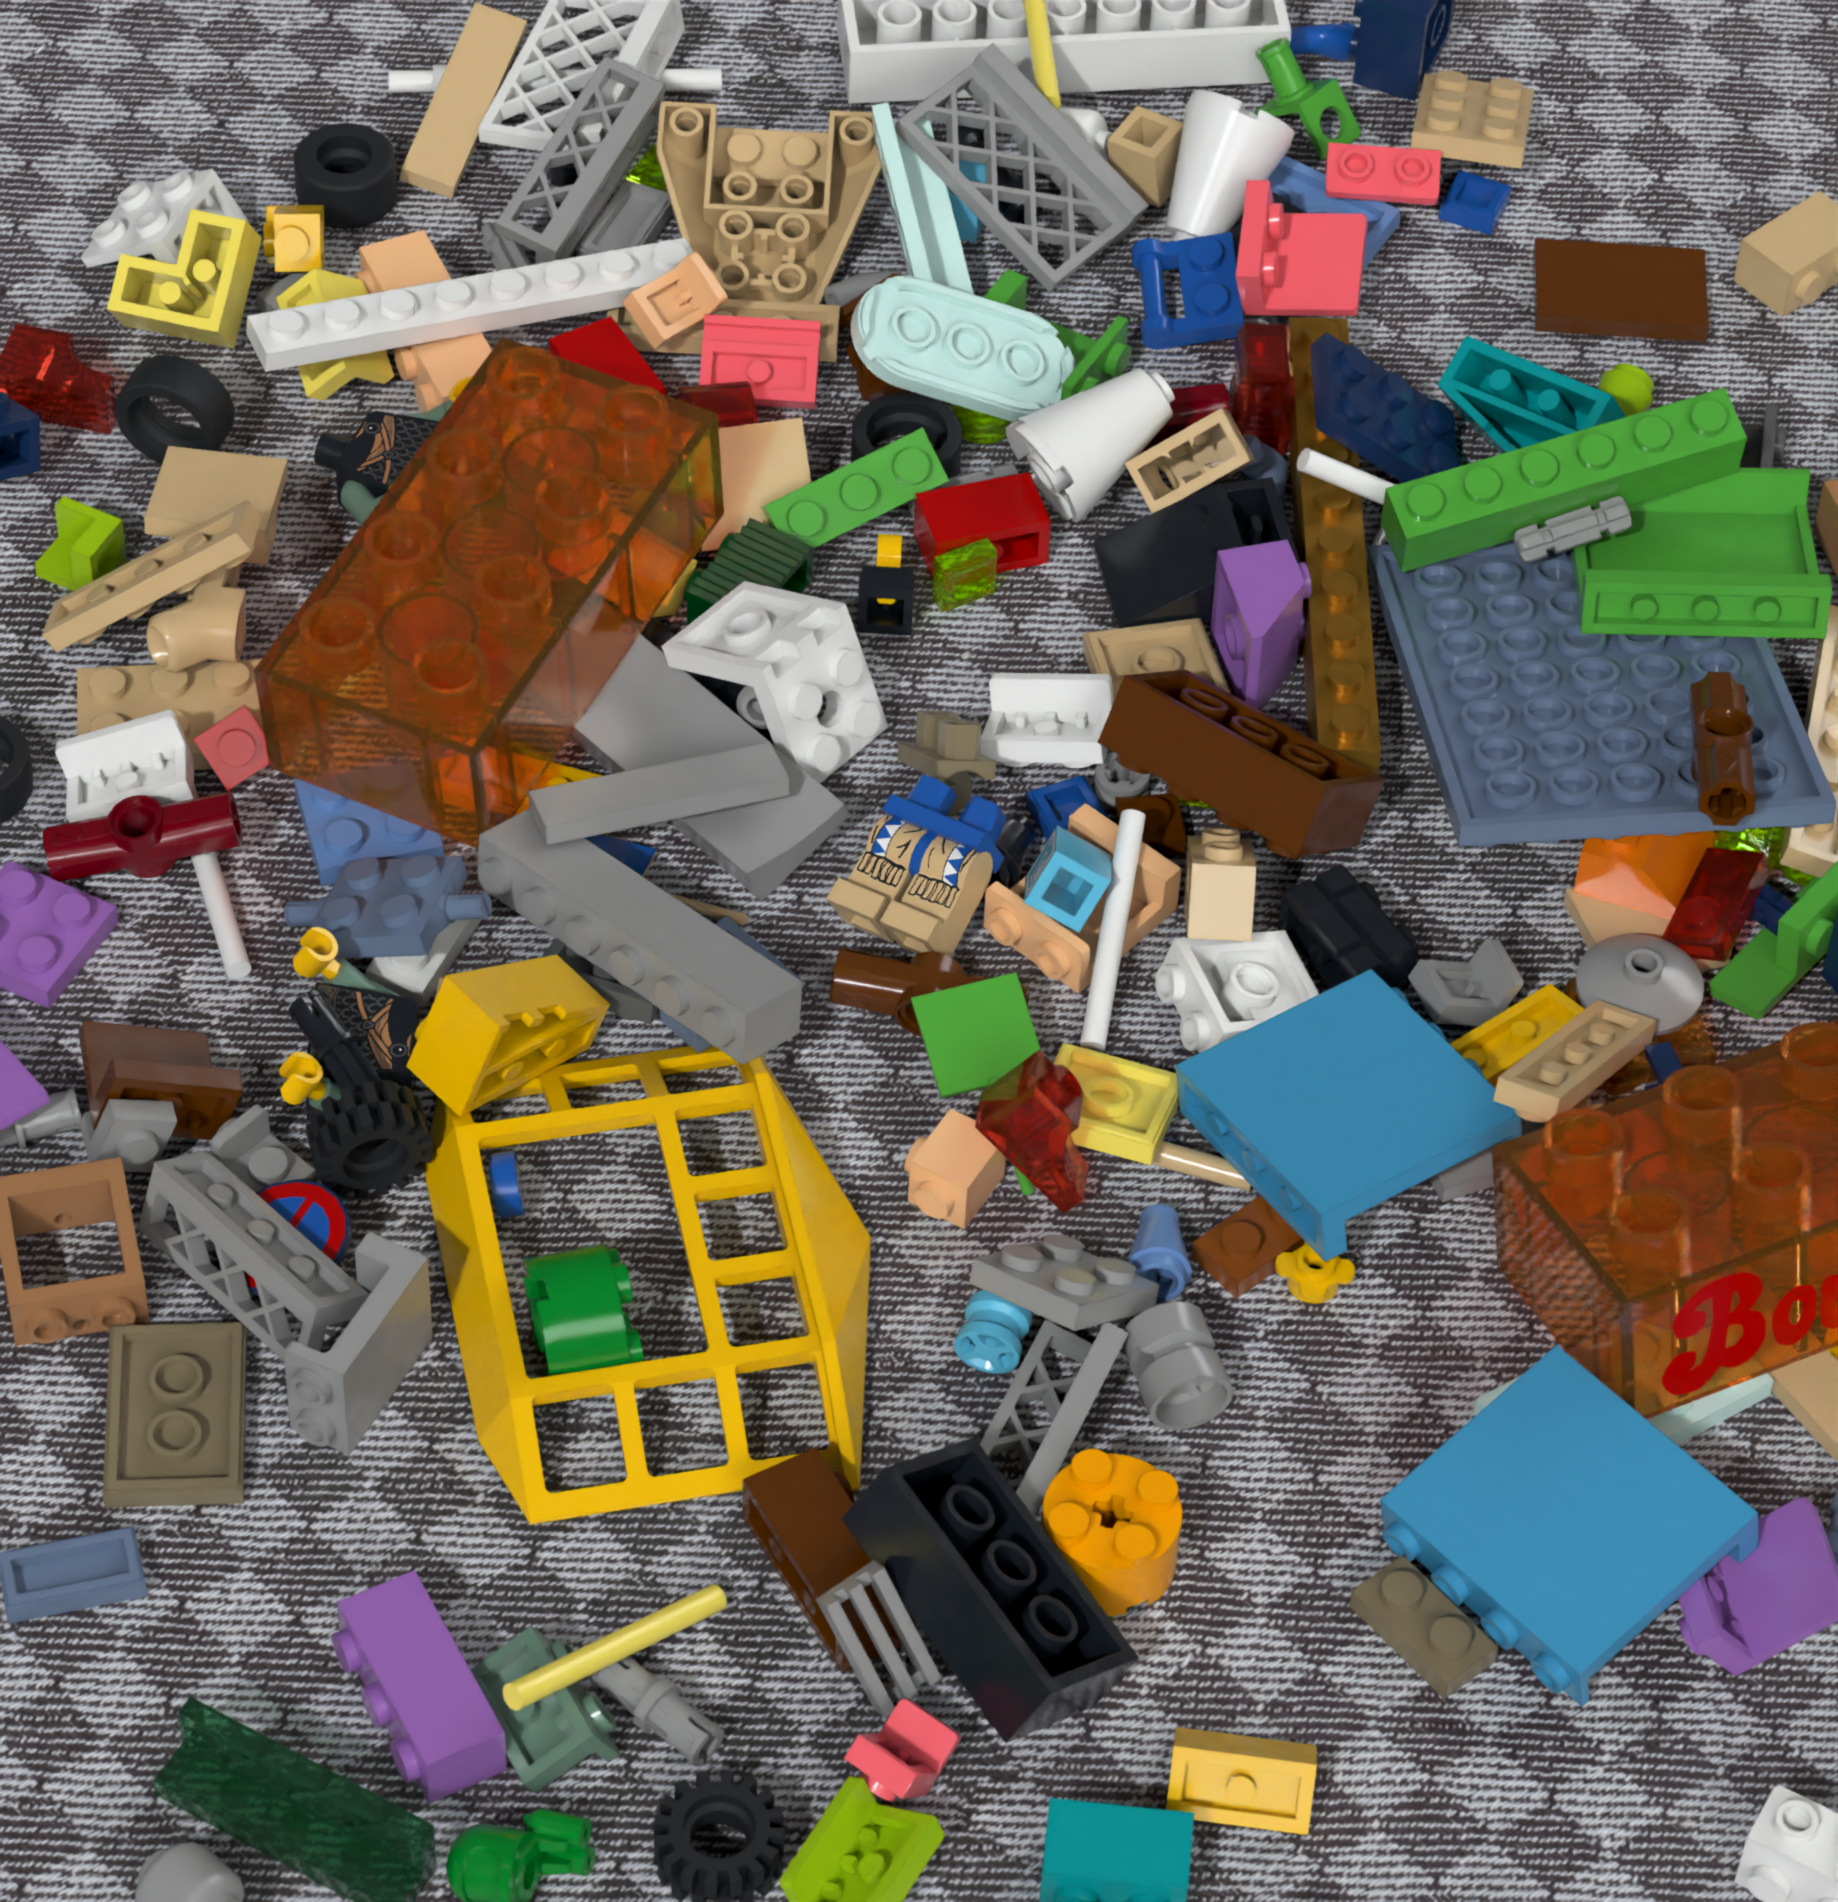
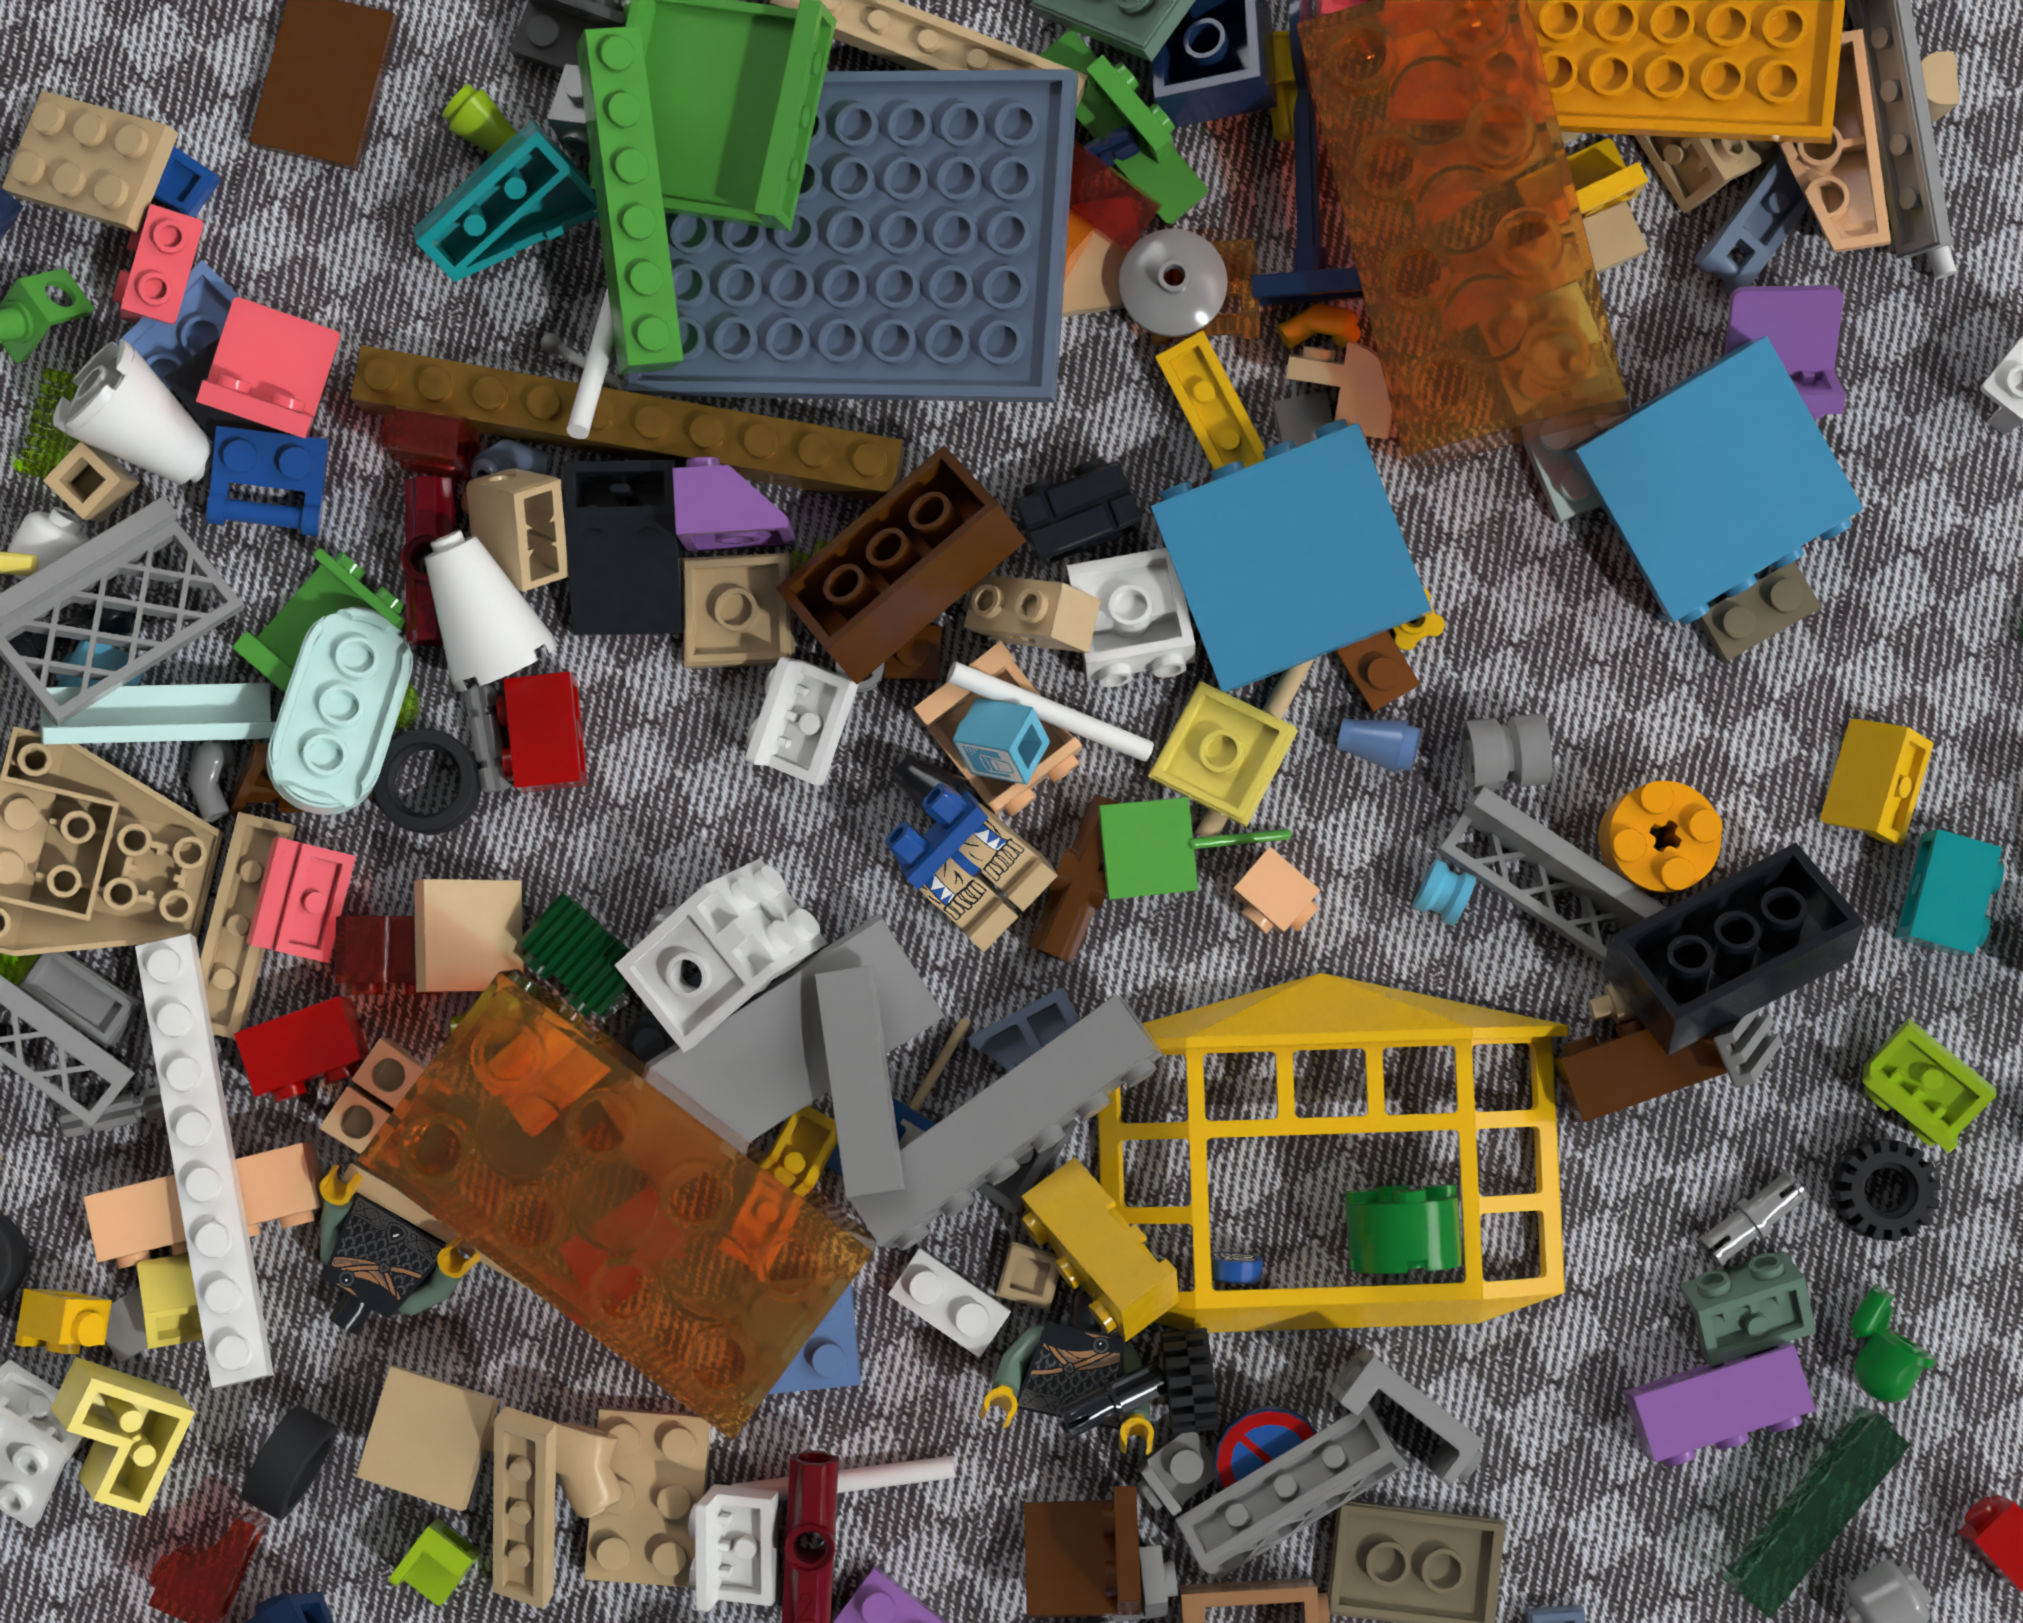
camera: 75 degrees left, 35 degrees up
(234, 747) = (710, 1452): plate -> none
(391, 905) = (930, 1334): sand blue plate -> none
(614, 1647) = (1721, 1247): light yellow bar -> none
(676, 300) = (232, 971): light nougat bracket -> none
(858, 491) = (497, 841): bright green plate -> none
(886, 591) = (610, 833): black piece -> none
(905, 1753) = (1838, 1039): coral bracket -> none
(946, 751) = (830, 818): dark tan hips -> none
(964, 575) = (602, 758): clear neon green tile -> none
(1031, 1123) = (1275, 823): clear red arch -> none
(1057, 801) = (884, 720): blue tile -> none
(1064, 1282) = (1425, 828): light grey plate -> none
(1379, 413) = (494, 341): dark blue plate -> none
(1467, 990) = (1147, 426): light grey bracket -> none
(1572, 529) = (675, 205): light grey axle -> none
(1574, 1061) = (1296, 362): tan plate -> none
(1722, 749) = (1042, 157): reddish brown piece -> none

